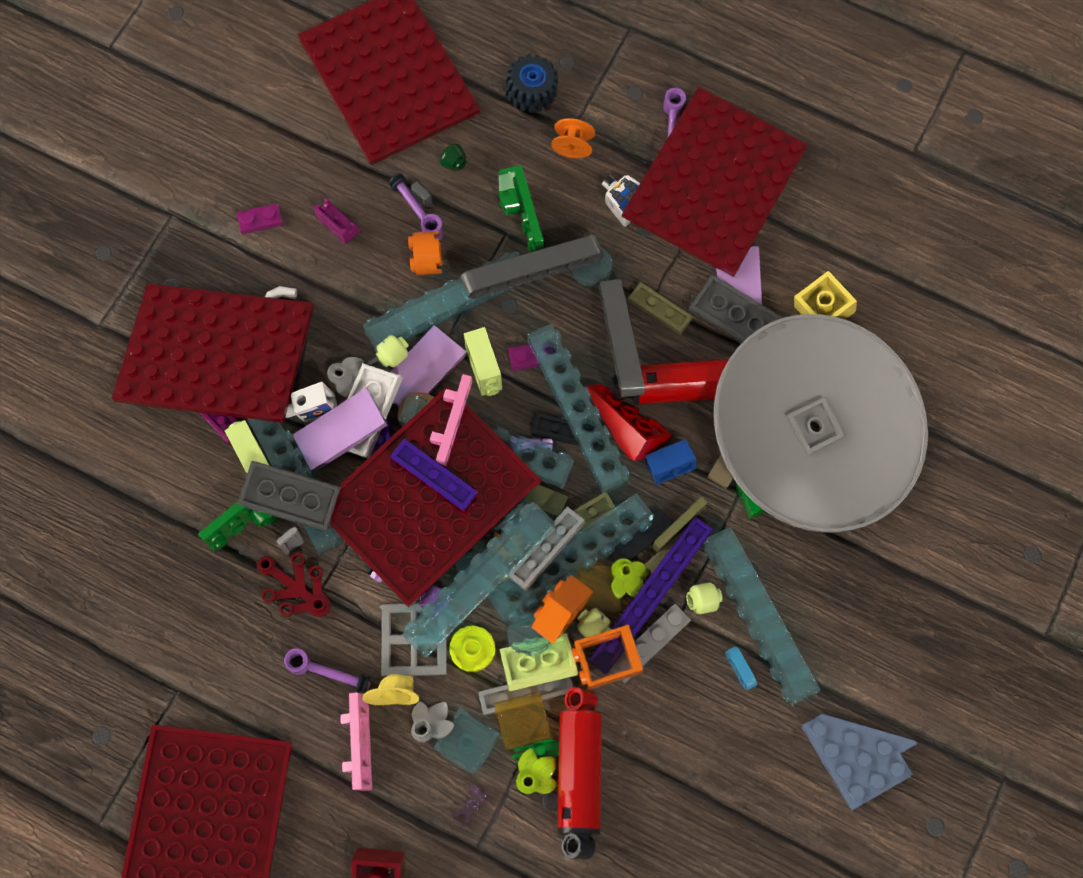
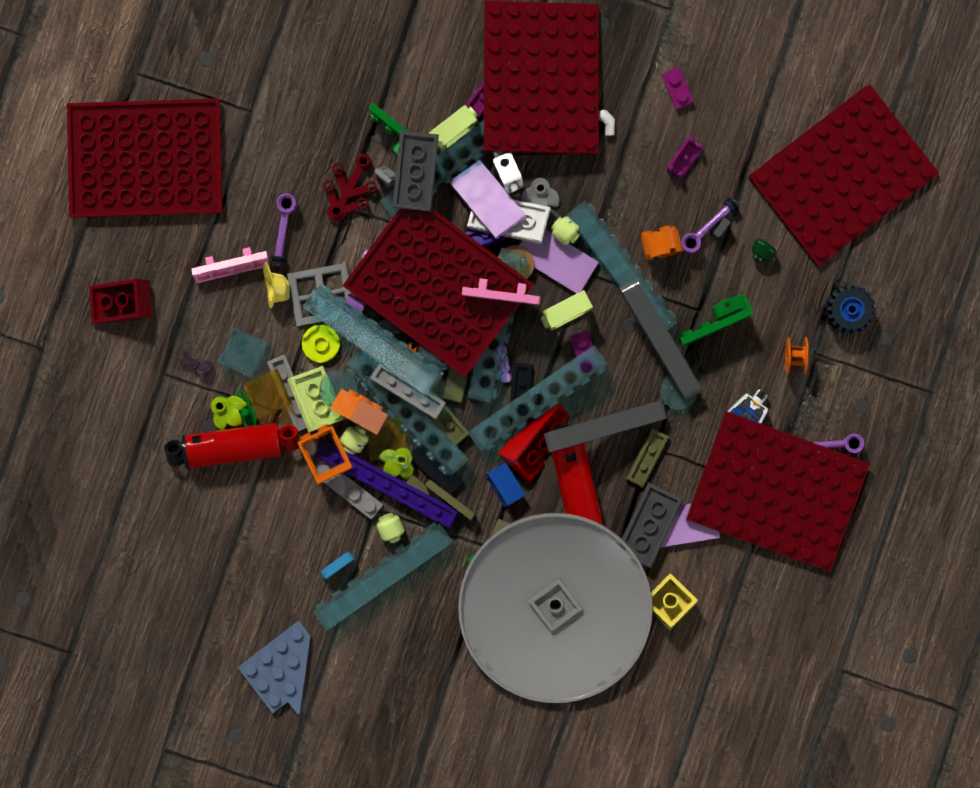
camera: 85 degrees right, 15 degrees up
(431, 718) = (258, 322): light grey plate -> none
(434, 475) = (452, 287): dark purple plate -> none

